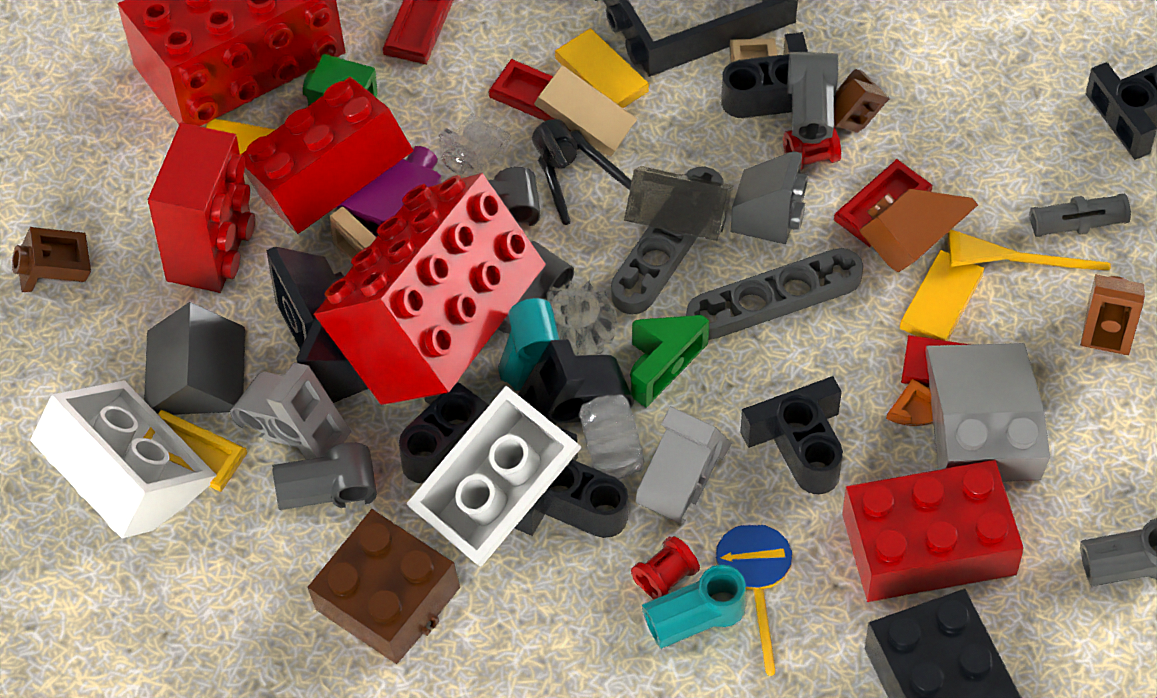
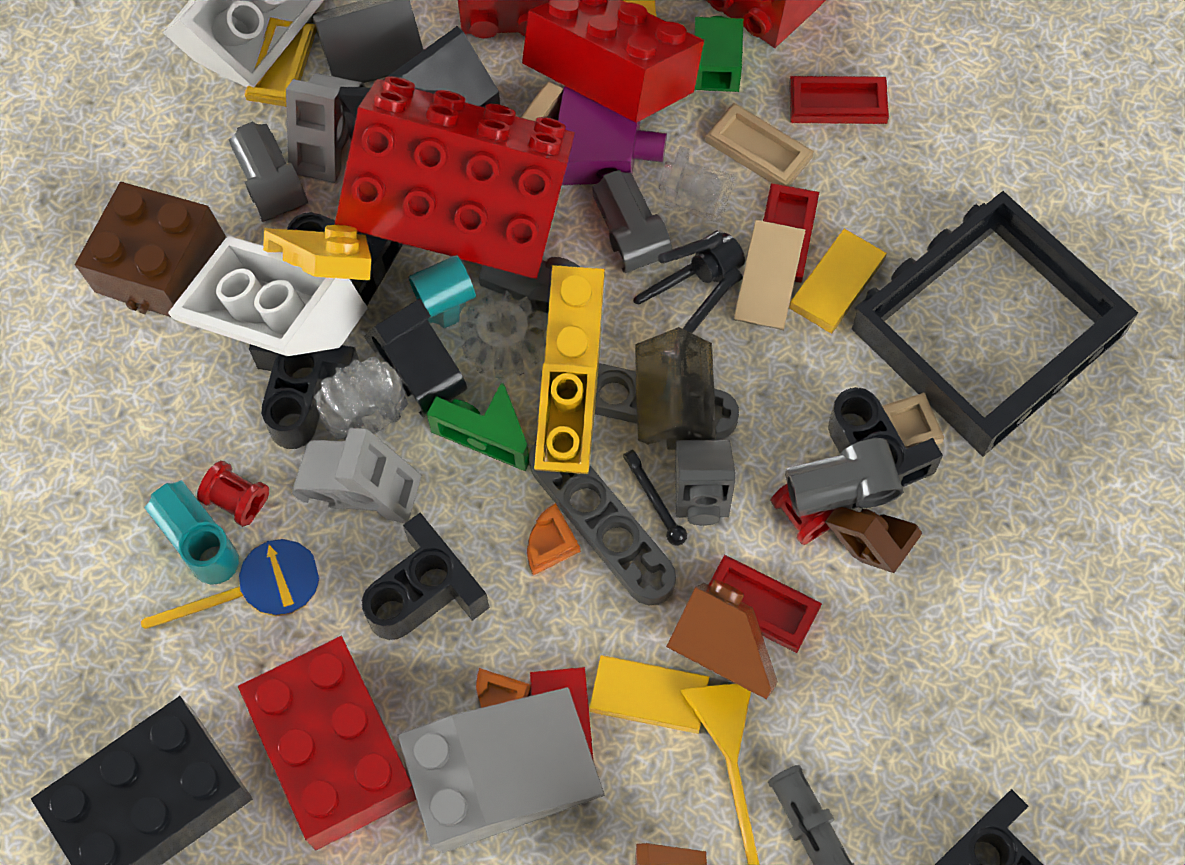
camera: 75 degrees right, 10 degrees up
(444, 91) = (759, 146): none -> tan tile
(484, 393) = (326, 254): none -> yellow wing
(648, 273) = (570, 370): none -> yellow slope
(782, 337) = (550, 541): none -> orange tile
(802, 246) = (676, 534): none -> black hinge

